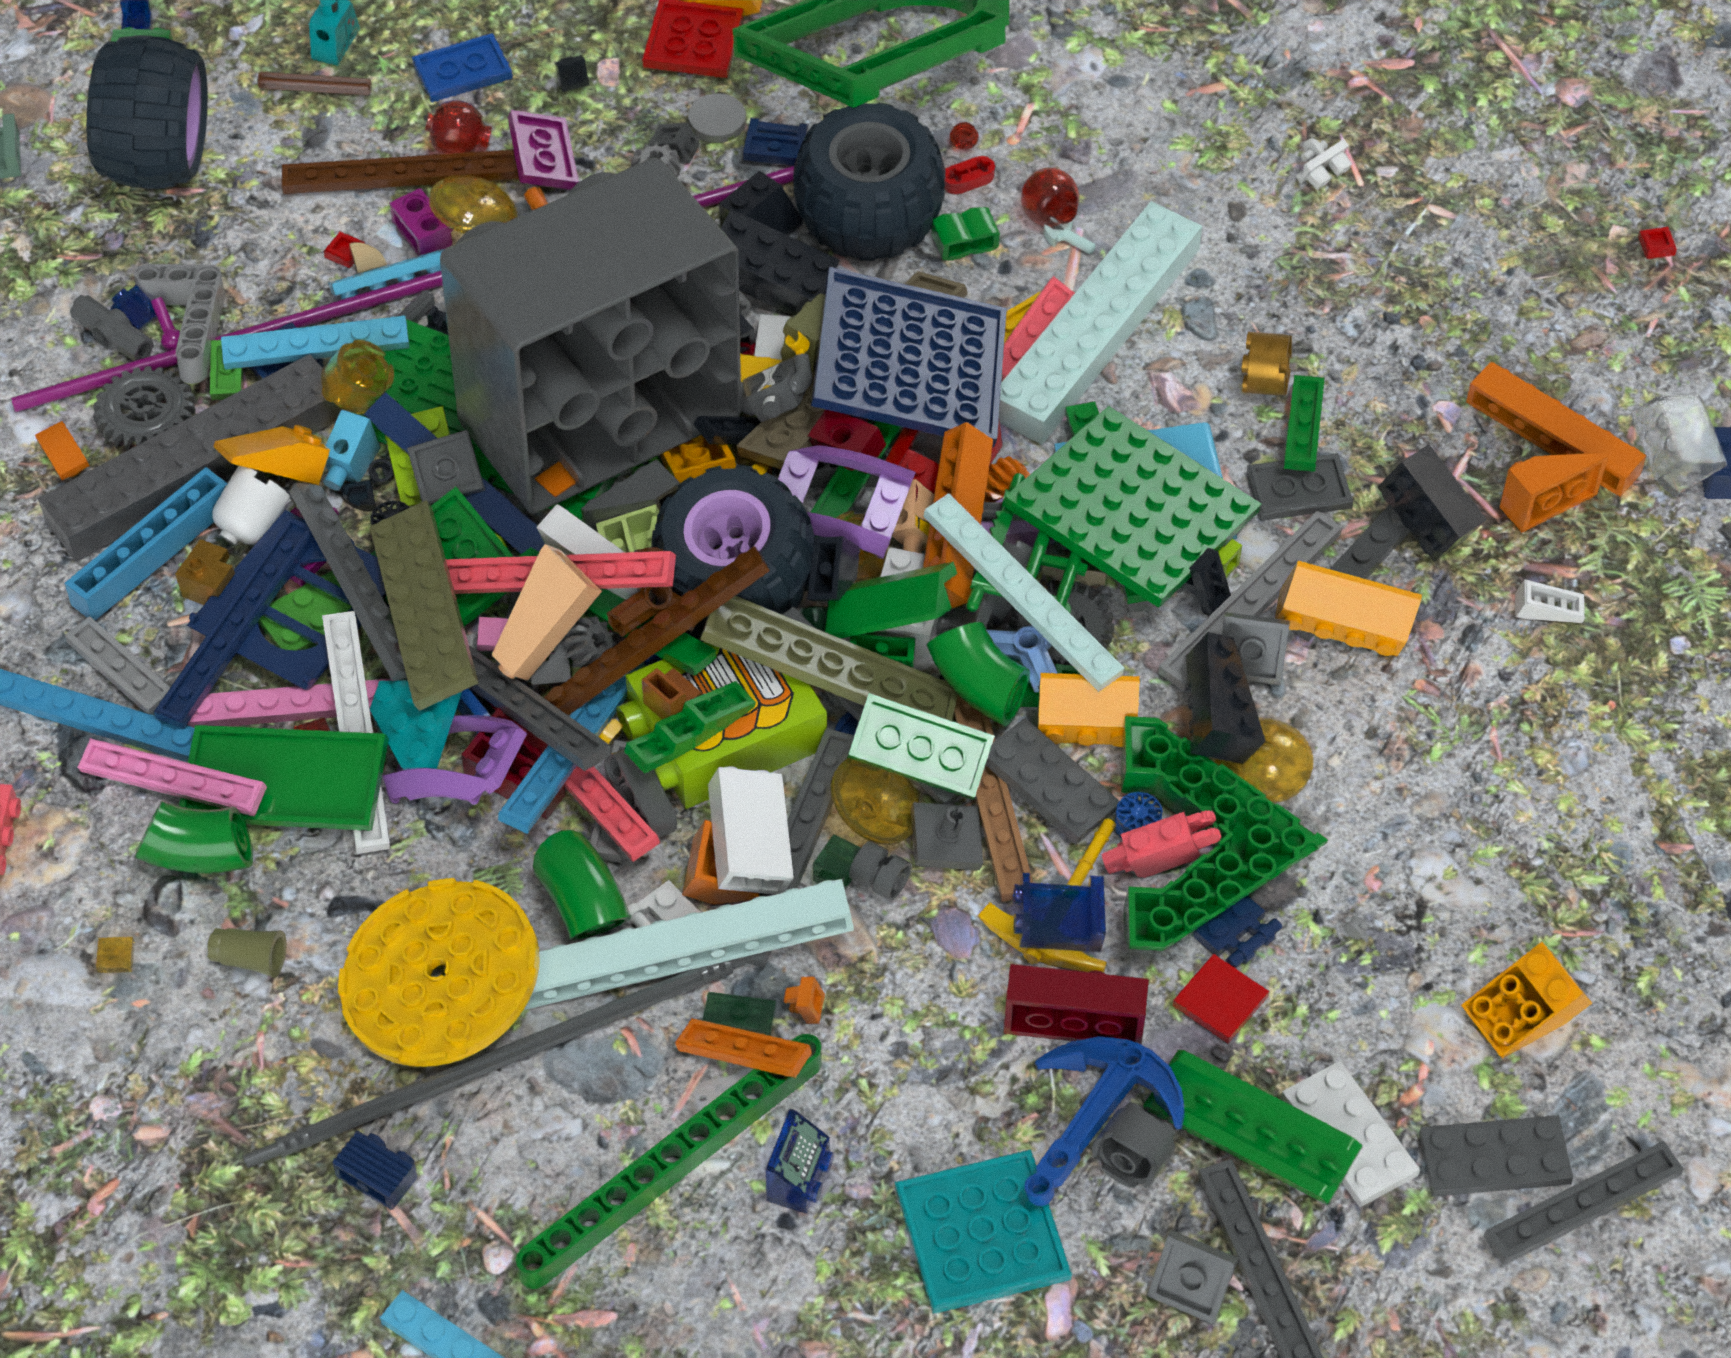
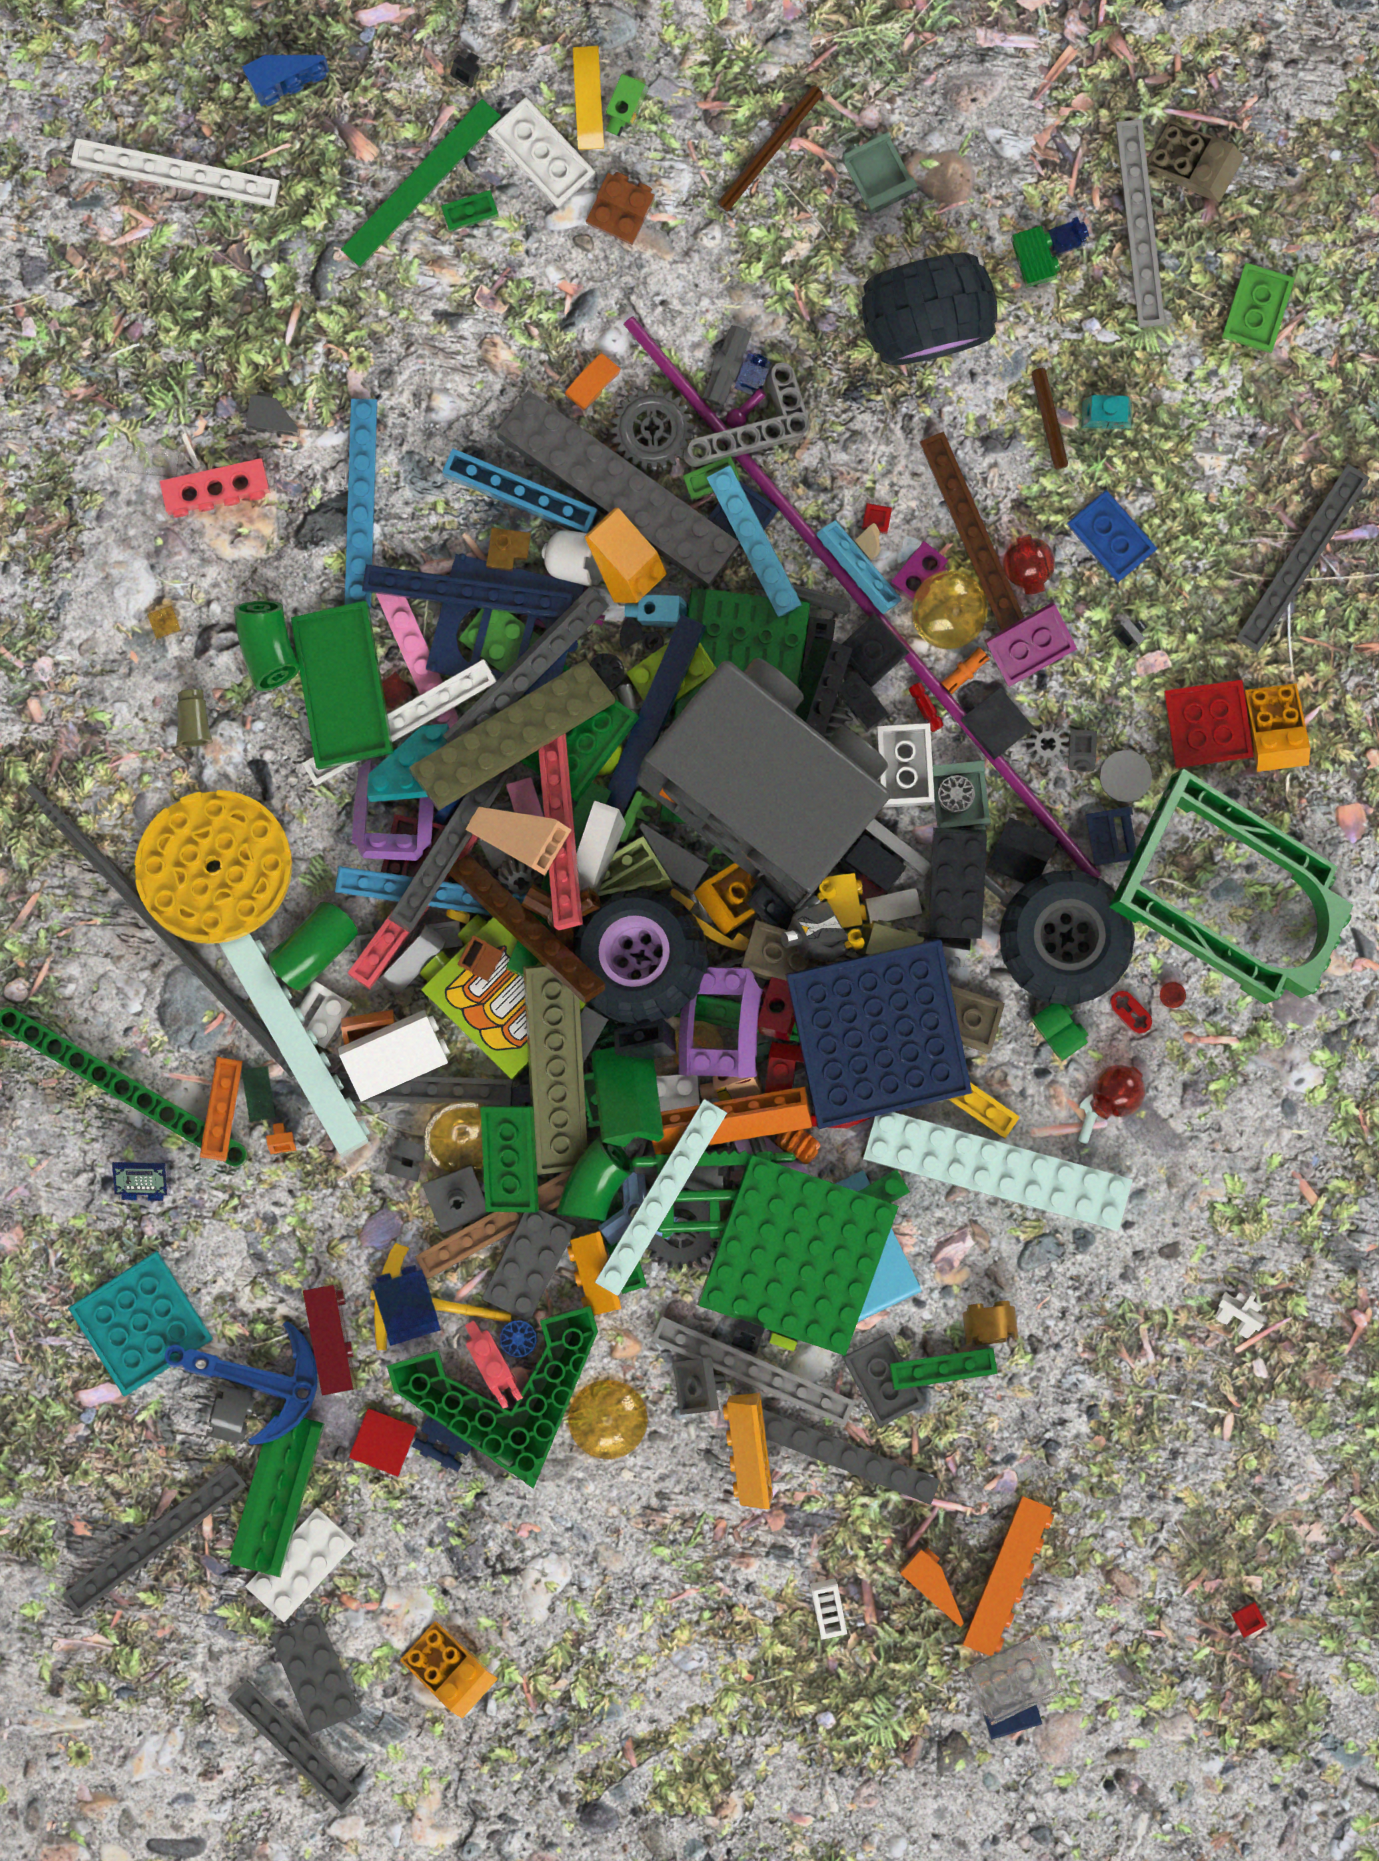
camera: 75 degrees right, 30 degrees up
(117, 664) = (407, 516): light grey plate -> none
(172, 777) = (317, 601): bright pink tile -> none
(356, 376) = (703, 593): clear yellow brick -> none
(375, 1169) = (49, 881): dark blue brick -> none
(446, 464) = (654, 699): dark grey tile -> none
(696, 723) = (458, 982): green slope -> none
(835, 861) = (402, 1124): clear green brick -> none
(1034, 322) = (969, 1120): coral tile -> none
(1192, 1276) = (142, 1483): dark grey tile -> none
(1221, 702) = (627, 1375): black wedge -> none
(1431, 503) = (874, 1493): black brick -> none

